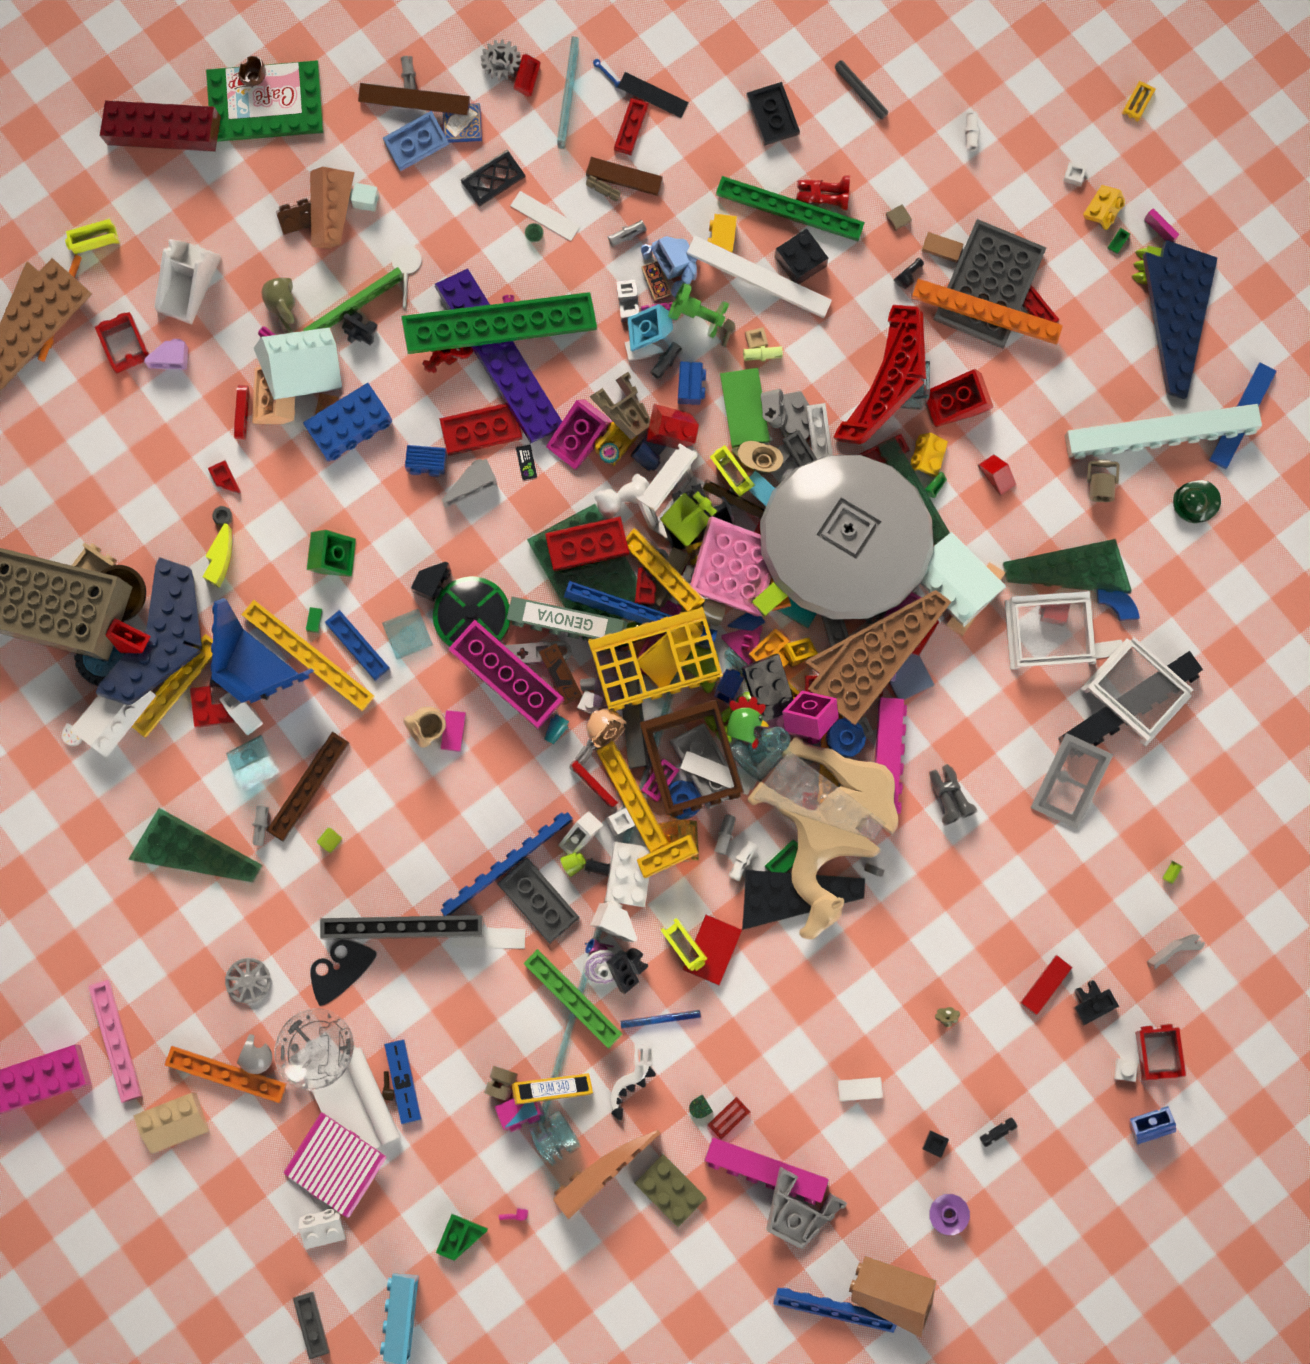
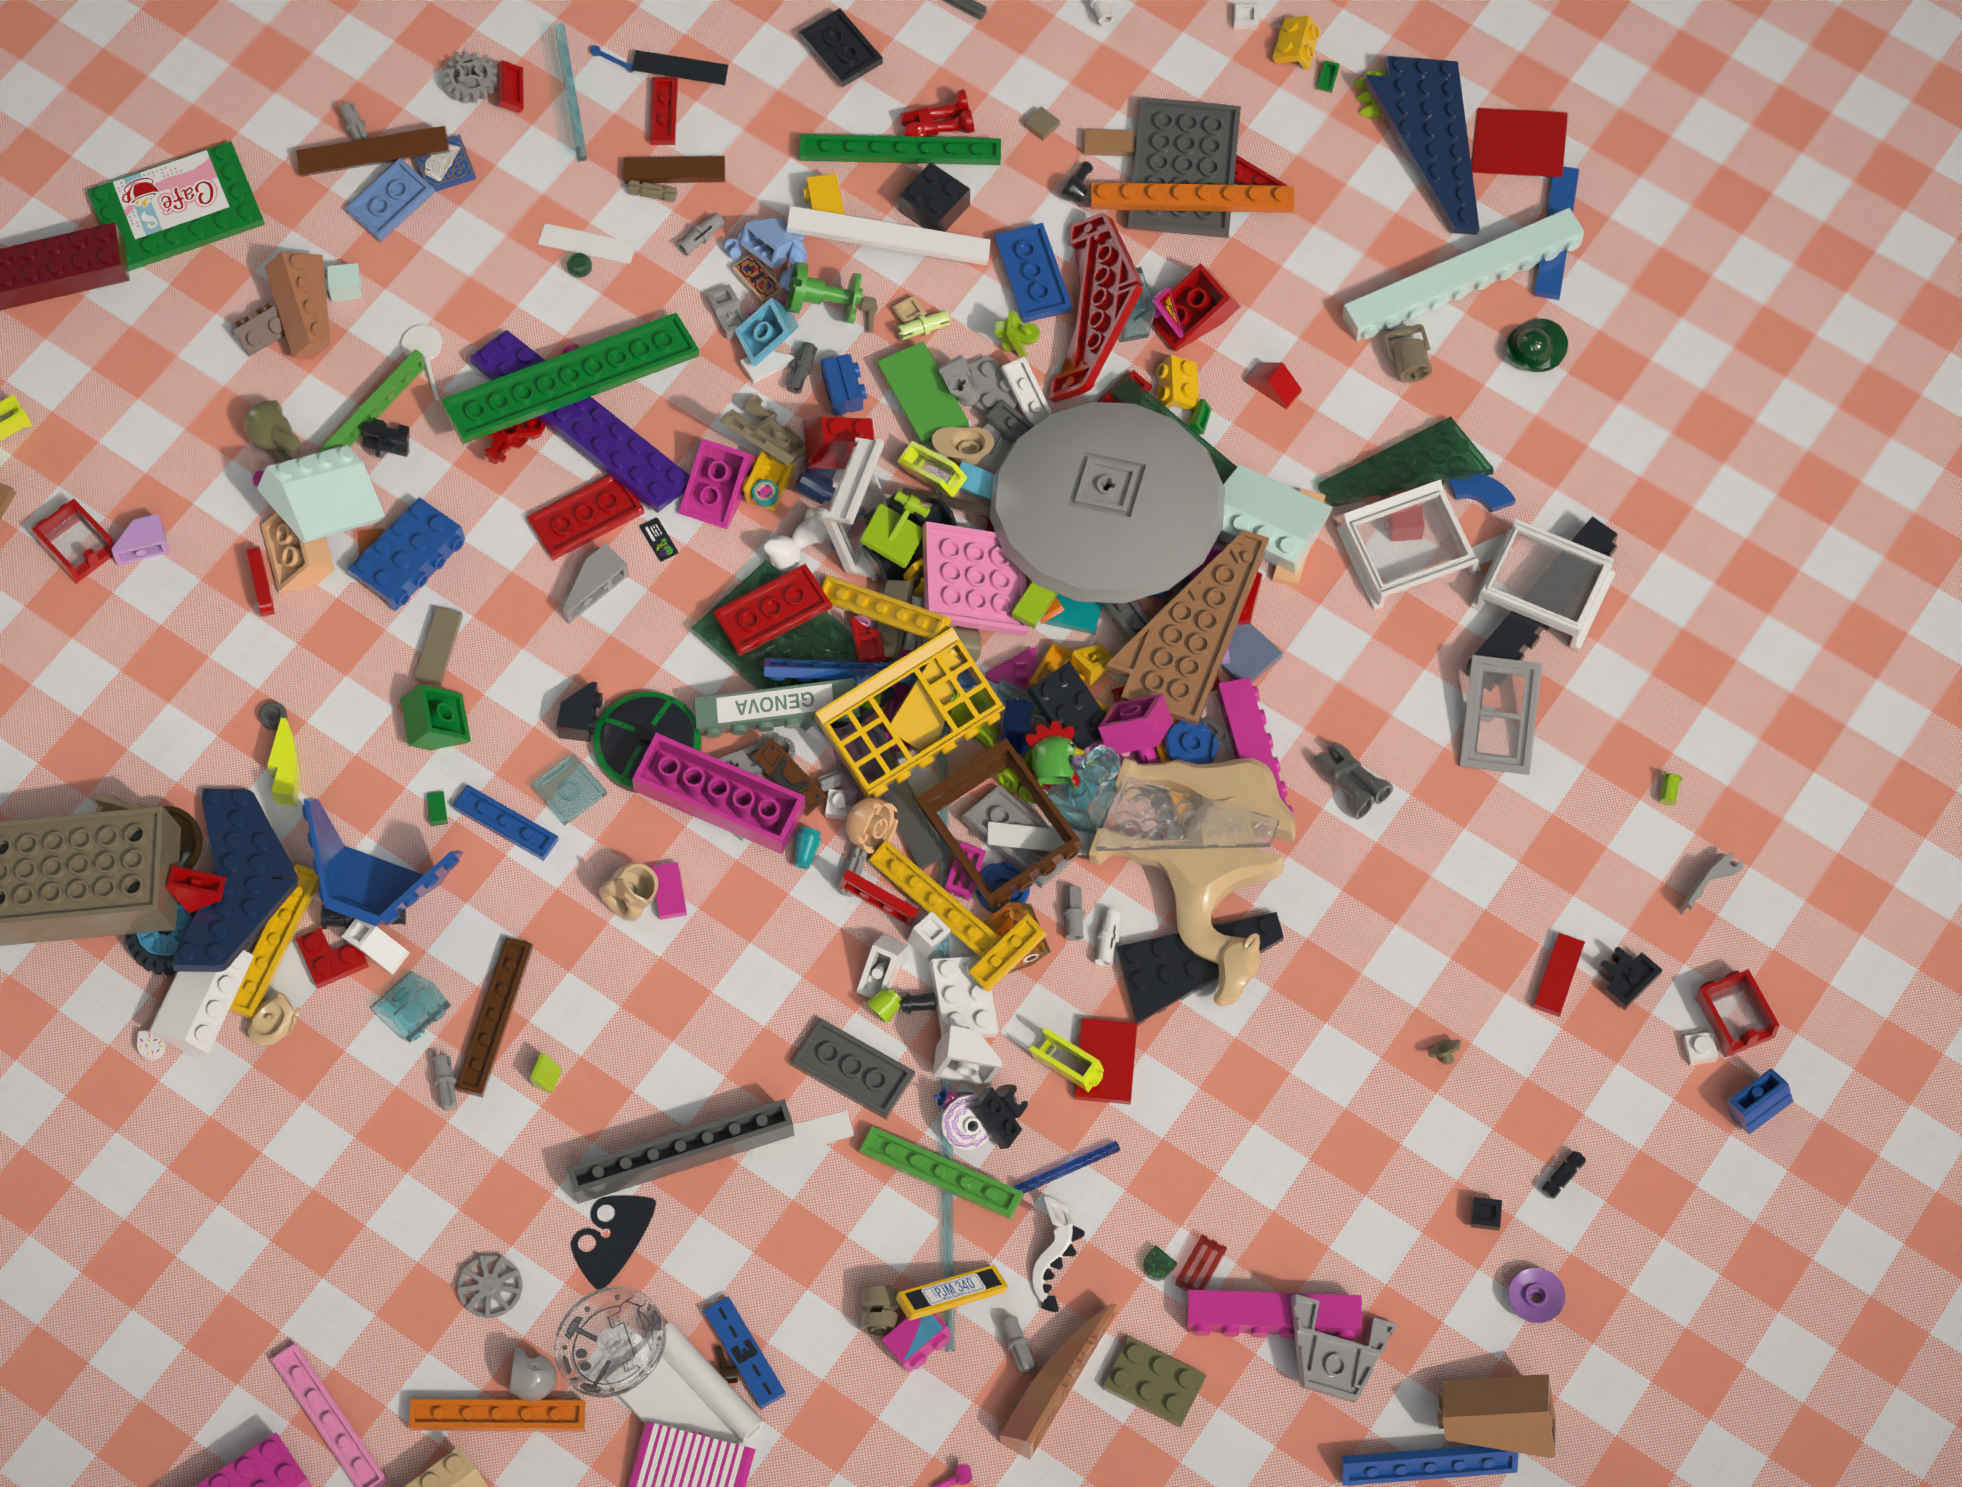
camera: 15 degrees left, 15 degrees down
(157, 744) = (273, 1020): none -> tan hat
(183, 847) = (349, 1140): clear green wing -> none
(184, 279) = (135, 443): white ladder -> none
(223, 477) = (260, 668): red tile -> none
(252, 72) = (151, 173): reddish brown hair -> none
(308, 655) = (433, 847): yellow plate -> none
(350, 498) = (438, 646): none -> dark tan tile
(425, 460) = (525, 570): blue brick -> none
(493, 192) = (524, 197): black window -> none
(499, 868) = (801, 1025): blue plate -> none
(555, 1138) = (973, 1359): clear light blue wheel -> none
(586, 1136) = (1018, 1344): none -> light grey axle
(747, 622) = (1014, 647): blue sticker -> none
(784, 859) = (1163, 920): green tile -> none
(825, 382) = (1015, 334): none -> lime hips
(853, 335) = (1033, 273): none -> blue plate
(860, 1089) = (1363, 1174): white slope -> none
(874, 870) = (1284, 898): dark grey tile -> none
(938, 396) = (1165, 306): none -> dark pink piece
(1161, 226) = (1373, 43): dark pink tile -> none
(1240, 336) = (1519, 142): none -> red piece

